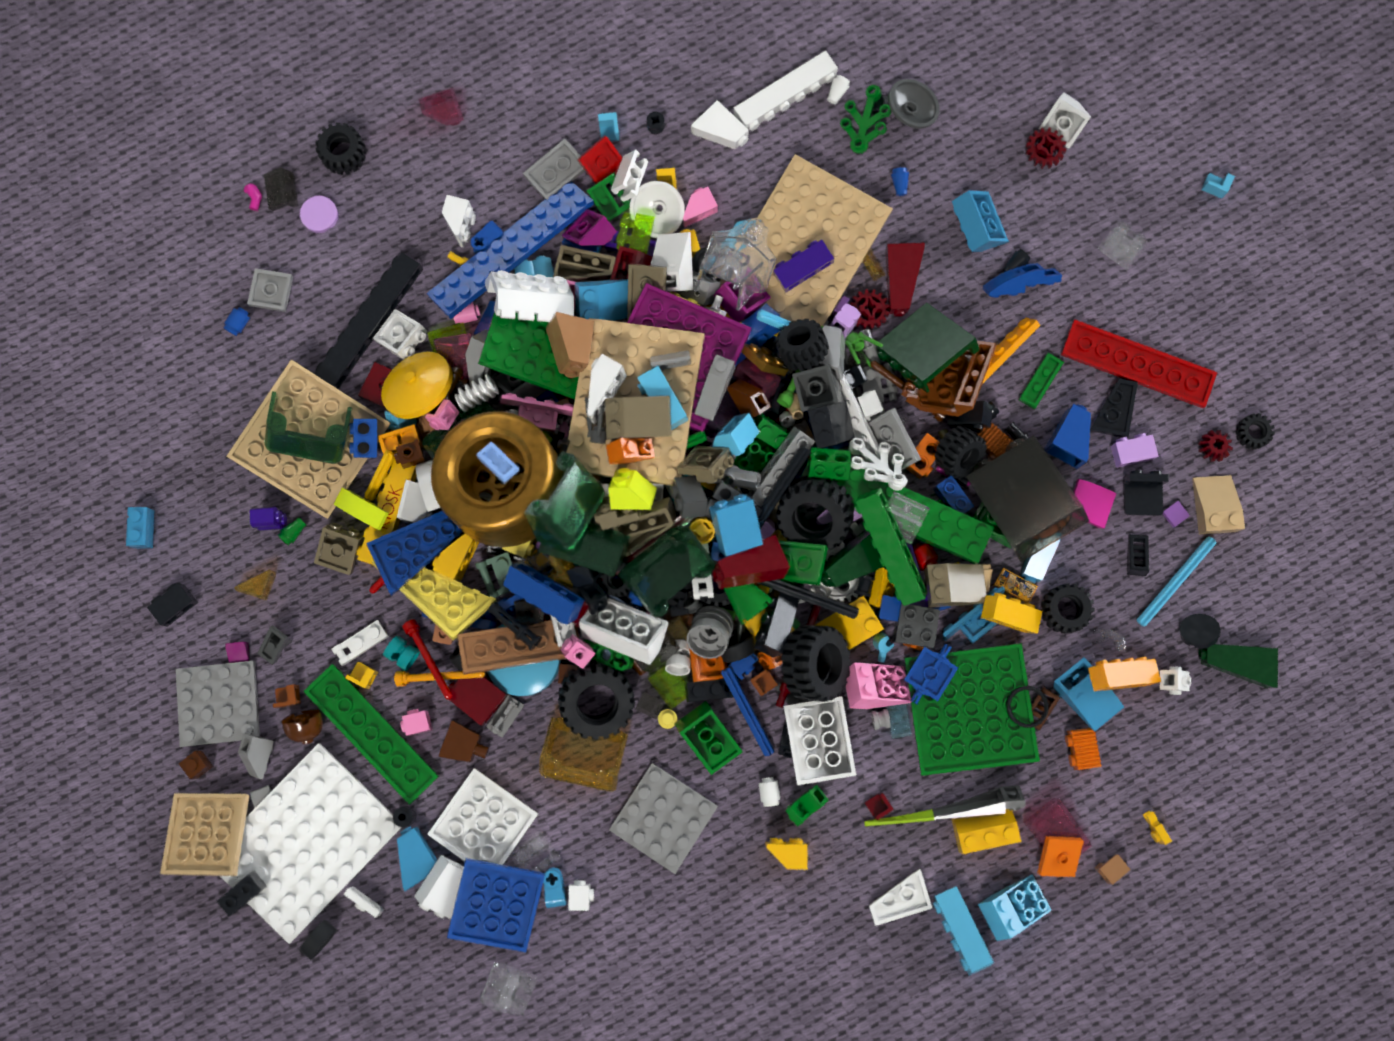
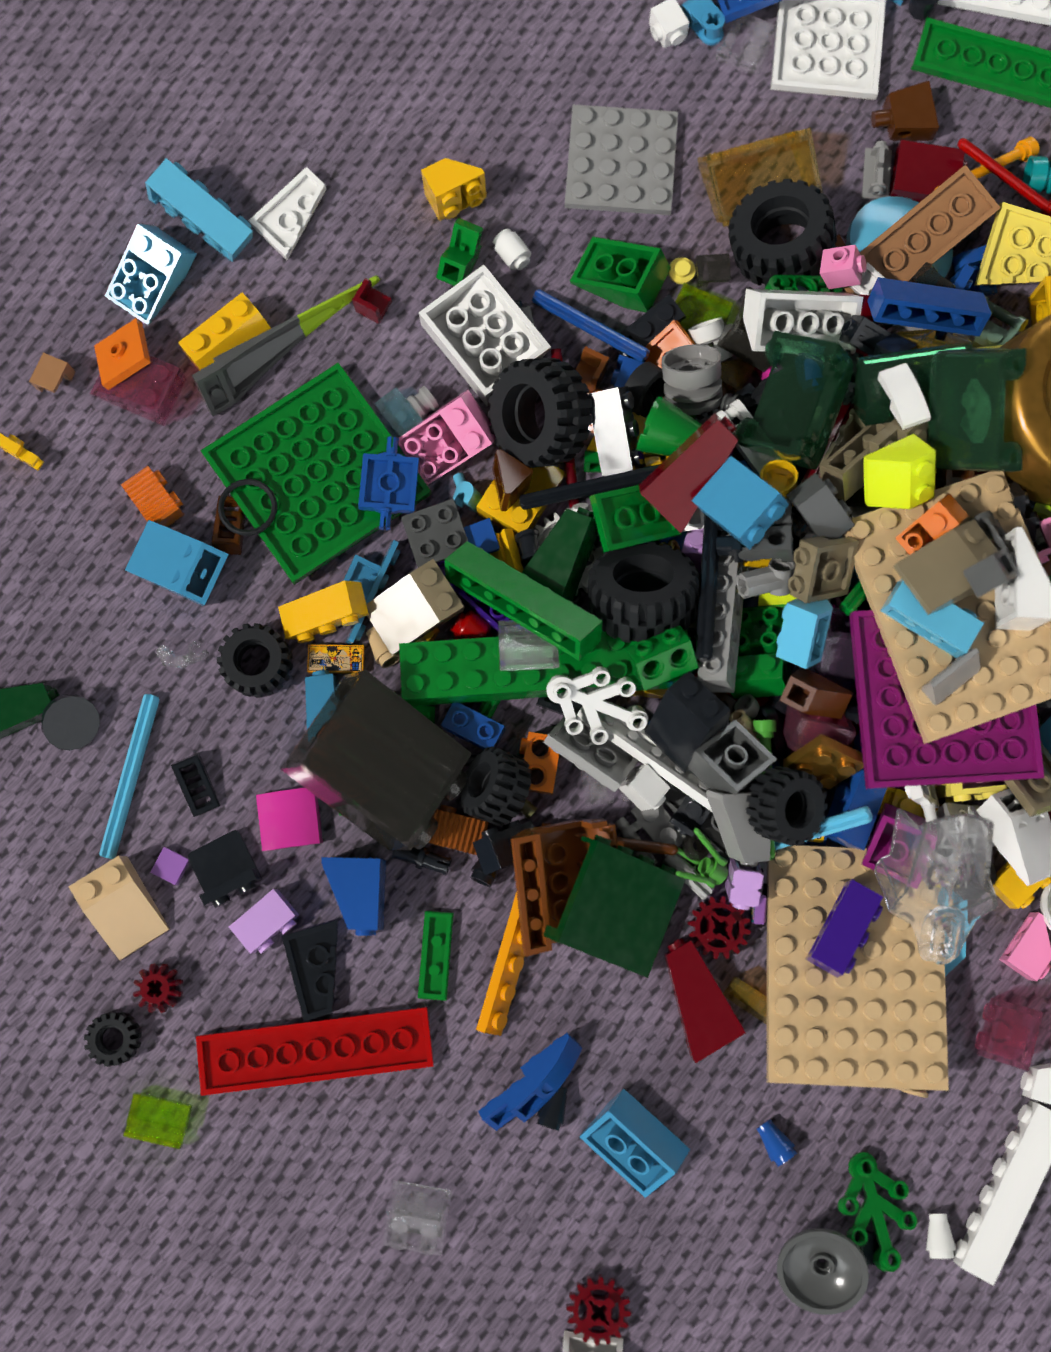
camera: 155 degrees right, 0 degrees up
(415, 722) = (977, 109): bright pink brick -> none
(521, 633) = (925, 253): black pin -> none
(602, 534) = (905, 396): none -> white slope
(621, 395) = (991, 572): none -> dark grey panel
(715, 387) = (871, 675): light grey slope -> none
(740, 168) = (1008, 1033): none -> clear pink slope
(855, 632) = (510, 478): none -> reddish brown slope
(1124, 674) = (142, 605): light orange brick -> none
(1175, 680) = (75, 641): white brick -> none
(1248, 372) = (157, 1120): none -> clear neon green plate

